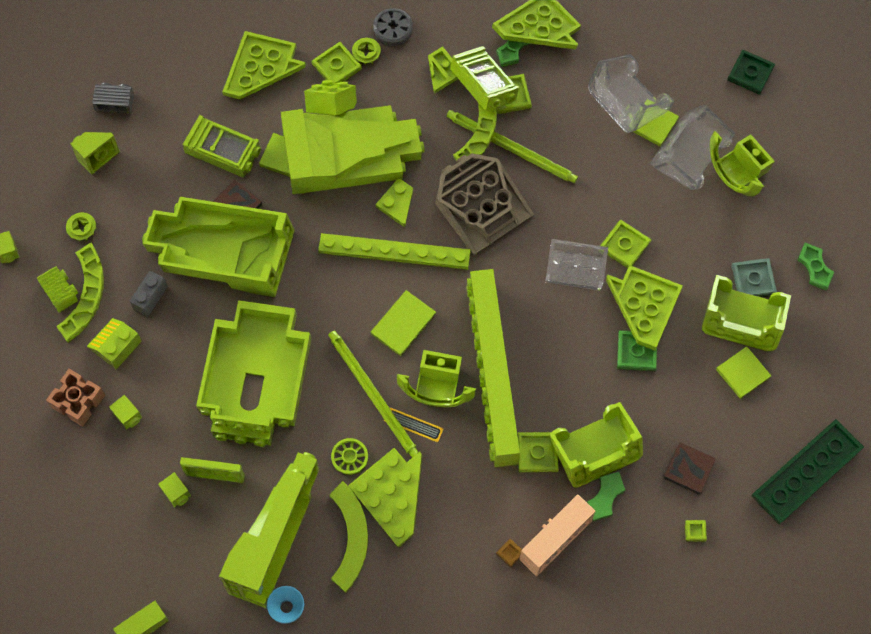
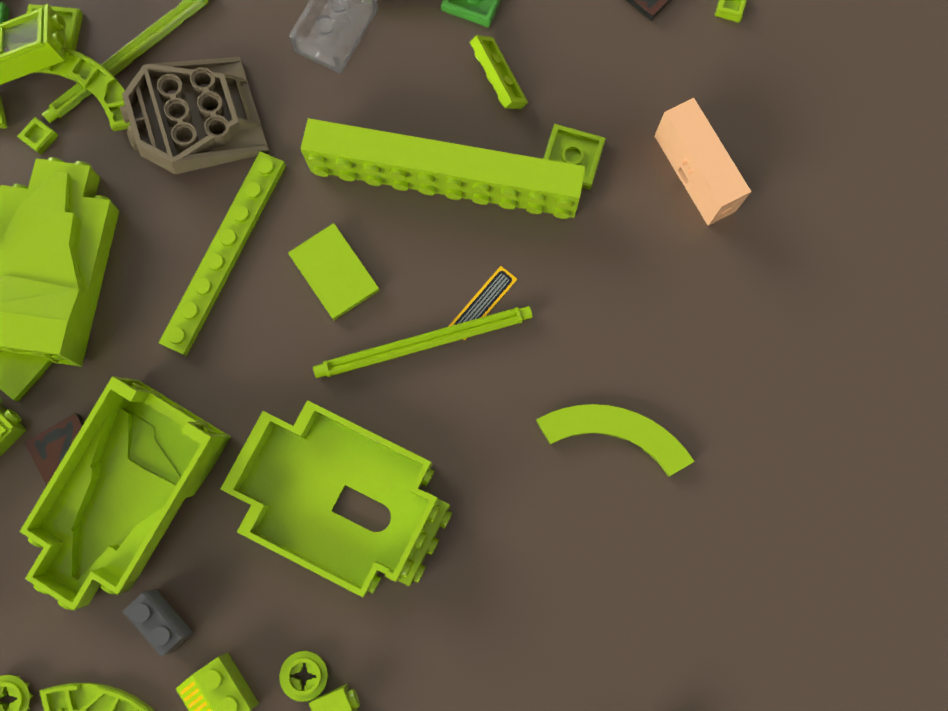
camera: 70 degrees left, 10 degrees up
(132, 385) = (293, 686): none -> lime gear
(174, 490) = (478, 664): lime brick -> none
(212, 470) = (469, 601): lime tile -> none
(261, 553) = (635, 565): lime panel -> none
(282, 595) = (709, 549): medium azure piece -> none
(349, 456) = (502, 400): lime wheel -> none
(391, 493) = (574, 359): lime wing -> none
(396, 201) = (151, 226): lime wing -> none
(435, 113) = (38, 135): none -> lime tile
(437, 381) = (438, 249): lime piece -> none
(509, 553) = (697, 233): pearl gold tile -> none
(581, 383) = (498, 72): none -> lime plate
(598, 446) = (590, 74): lime windscreen -> none
(610, 488) = (647, 85): bright green tile -> none

